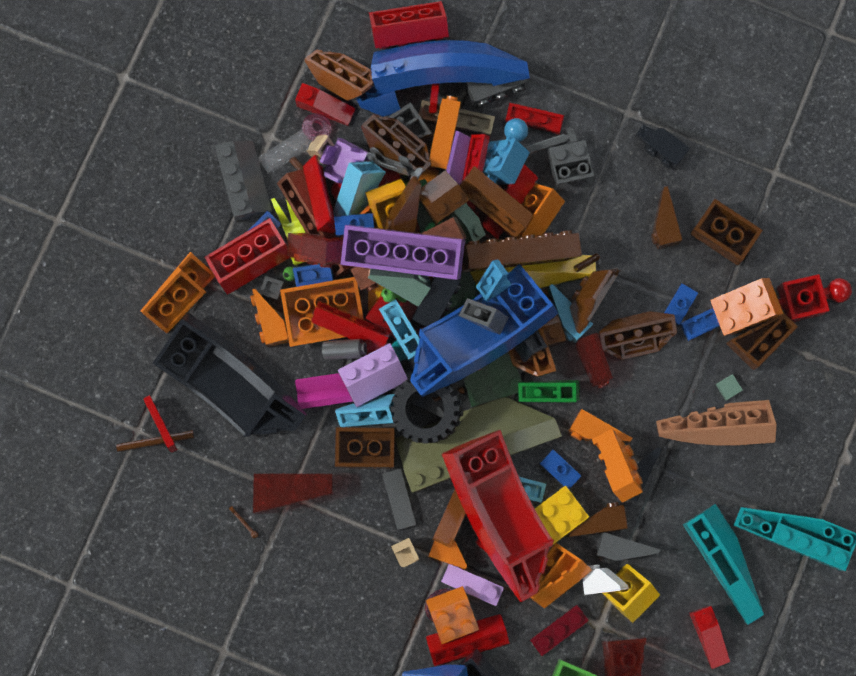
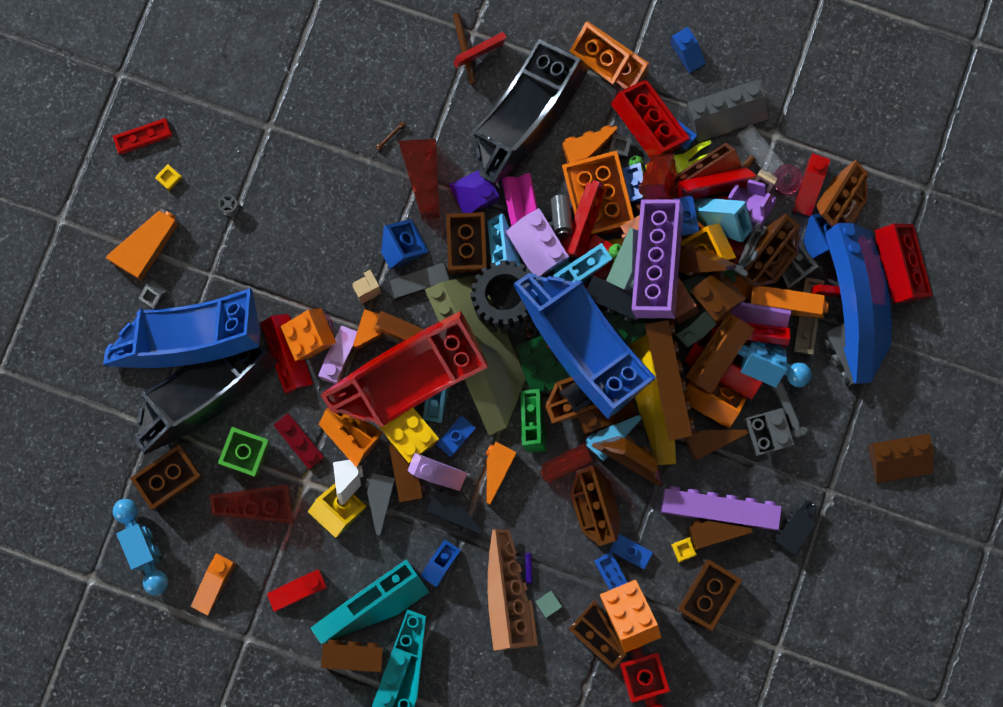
camera: 90 degrees right, 0 degrees up
(176, 214) = (688, 49): none -> blue slope
(310, 439) = (474, 193): none -> dark purple slope
(360, 514) = (401, 243): none -> blue slope
(484, 316) = (599, 343): dark grey slope -> none
(493, 281) = (635, 351): dark azure slope -> none
(536, 118) = (815, 396): red tile -> none
(576, 217) = (709, 441): none -> reddish brown slope
(587, 262) = (667, 454): reddish brown piece -> none
(597, 493) = (436, 472): none -> lavender slope
(598, 42) = (902, 458): none -> reddish brown slope
(619, 464) = (460, 490): orange wedge -> none
(643, 215) = (721, 509): none -> medium lavender brick
(679, 253) = (684, 549): none -> yellow tile
(687, 490) = (440, 563): none -> blue slope
(690, 404) = (528, 564): none -> dark purple piece
(779, 581) = (353, 656): none -> reddish brown brick

